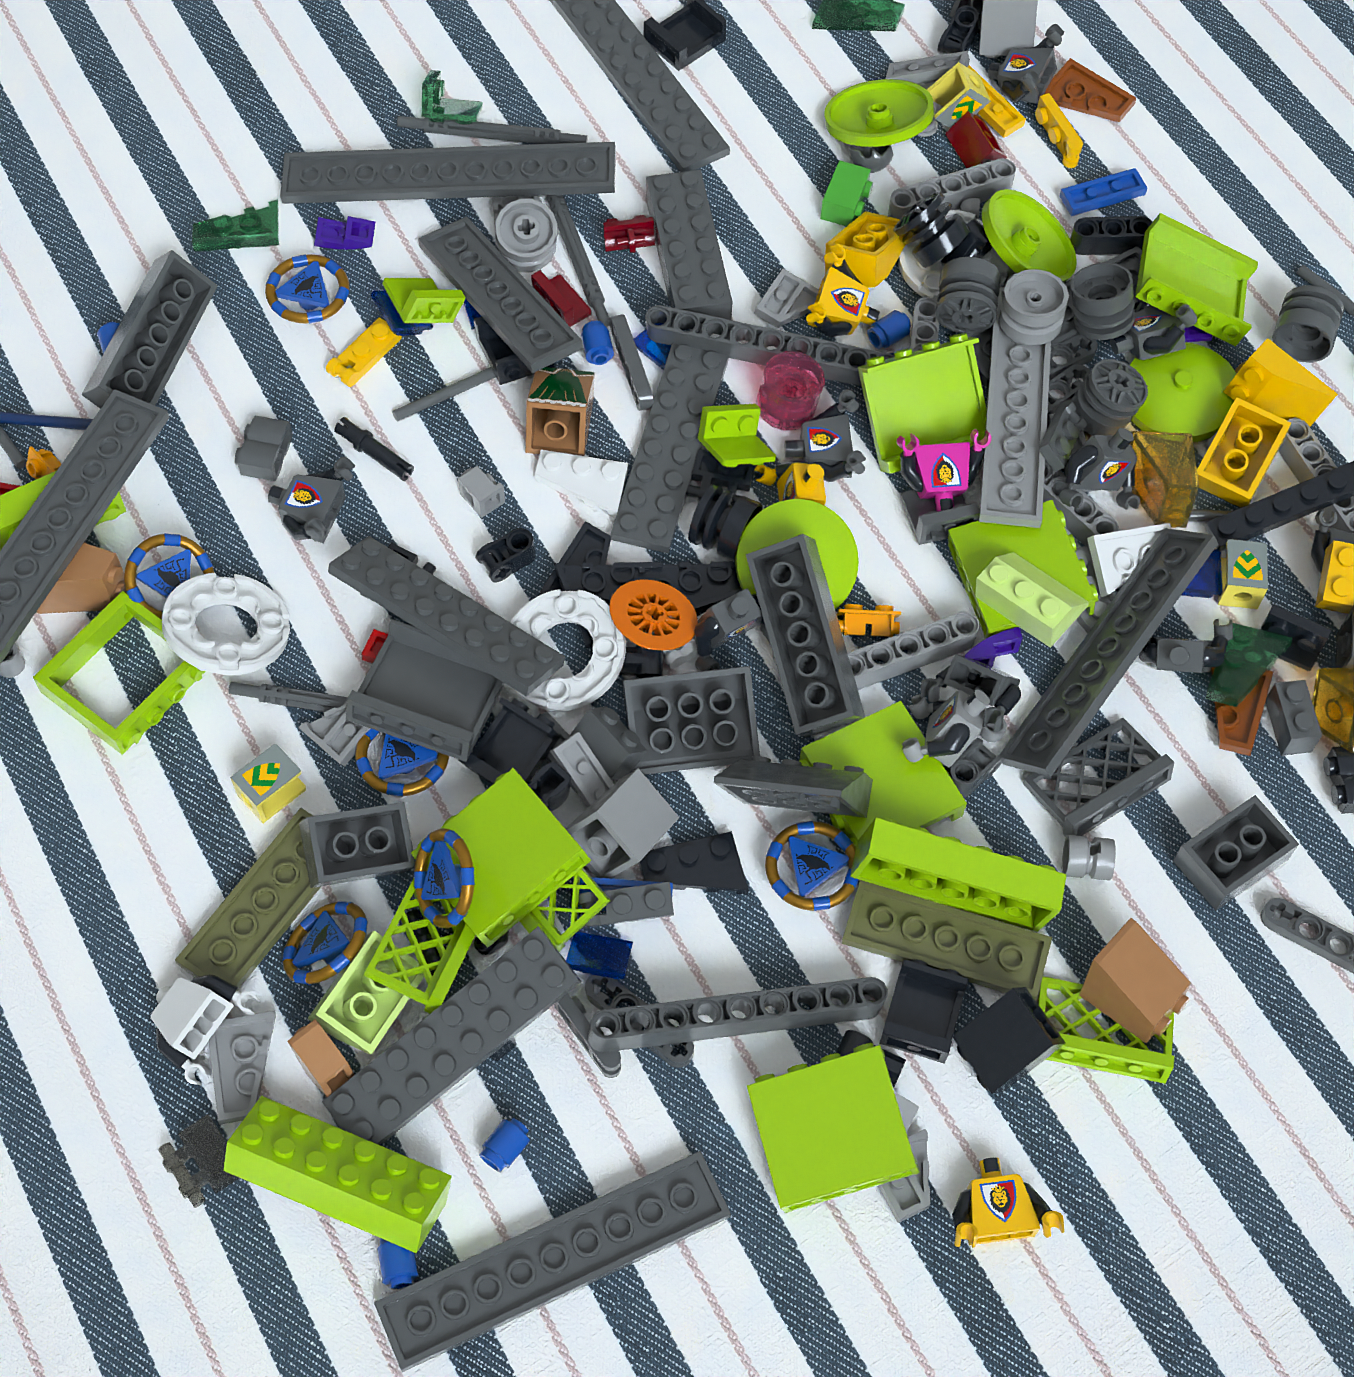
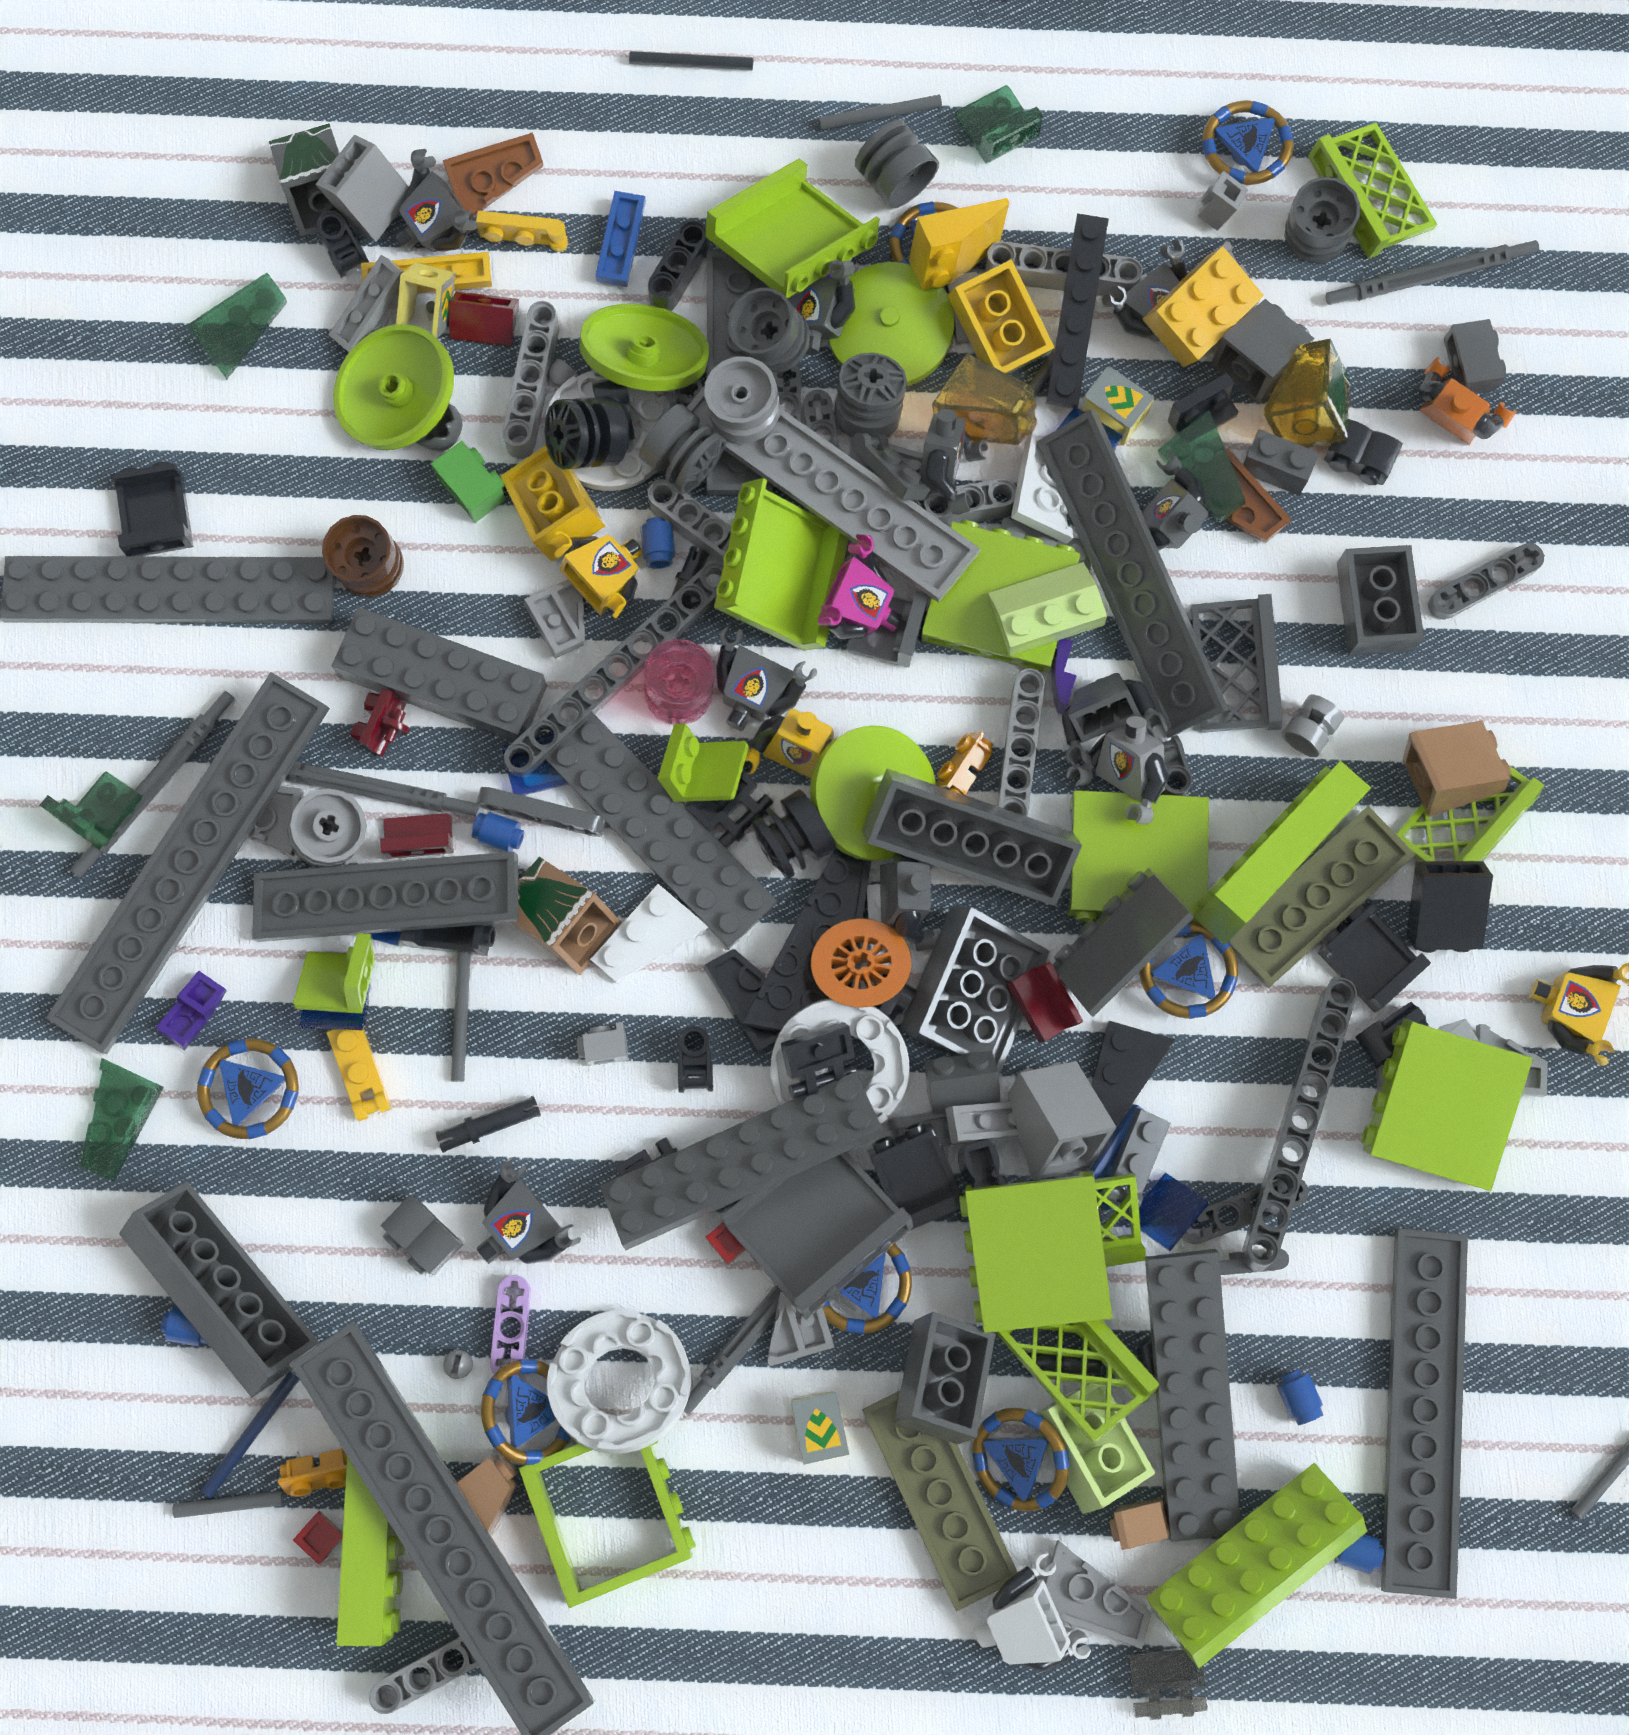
camera: 60 degrees left, 15 degrees up
(182, 522) = (465, 1364): none -> light grey hinge
(234, 530) = (504, 1299): none -> lavender beam
(443, 877) = (1048, 1318): piece -> none
(562, 616) = (815, 1052): none -> black plate
(712, 760) = (1044, 1001): none -> dark red panel
(740, 156) = (355, 541): none -> reddish brown wheel
(1279, 169) = (691, 60): none -> black bar

